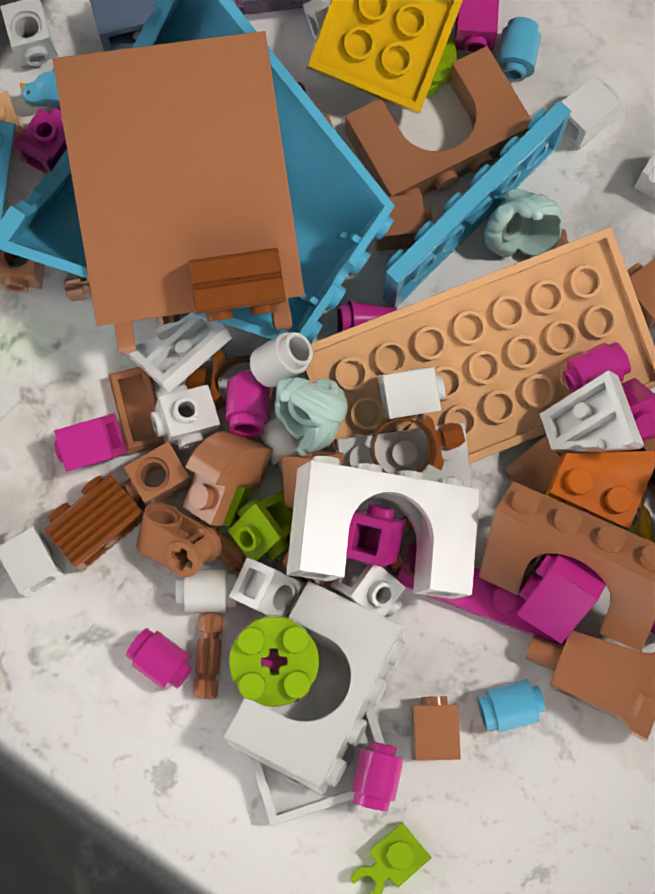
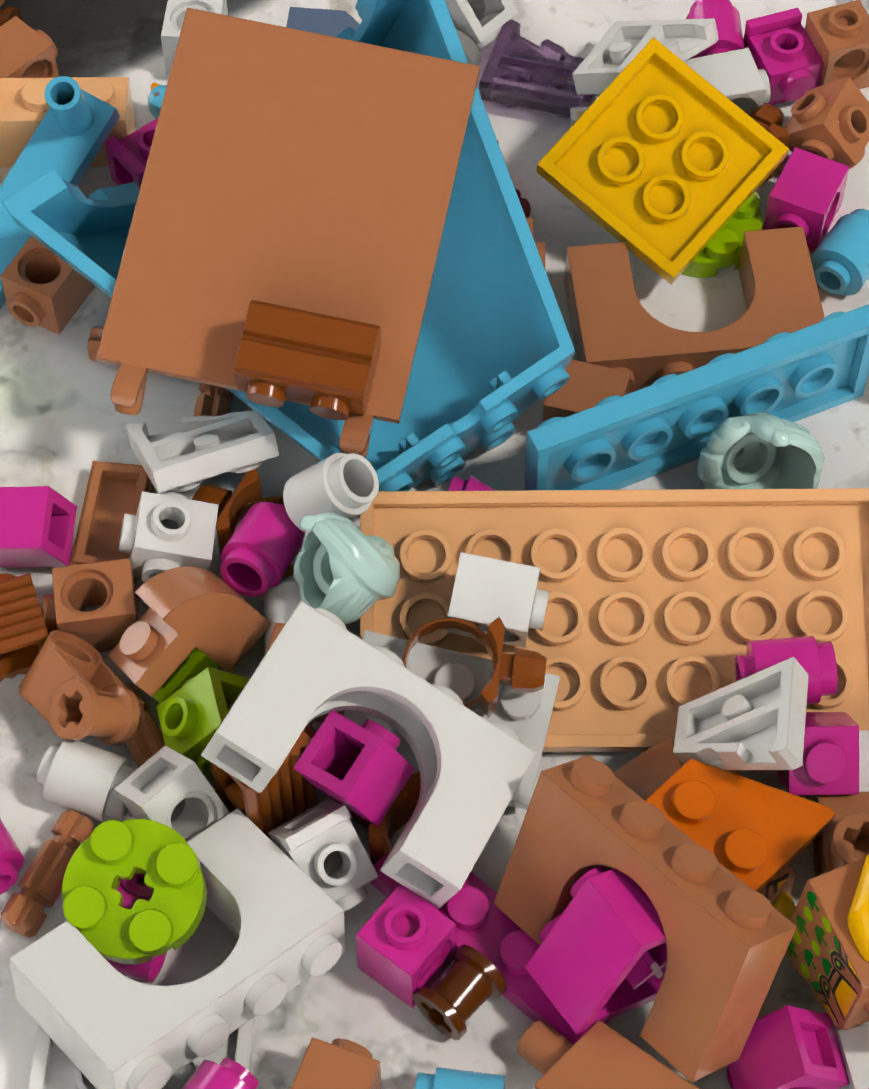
camera: 20 degrees right, 20 degrees down
(439, 623) = (406, 944): none -> dark pink brick
(479, 636) = (460, 992): none -> reddish brown bush

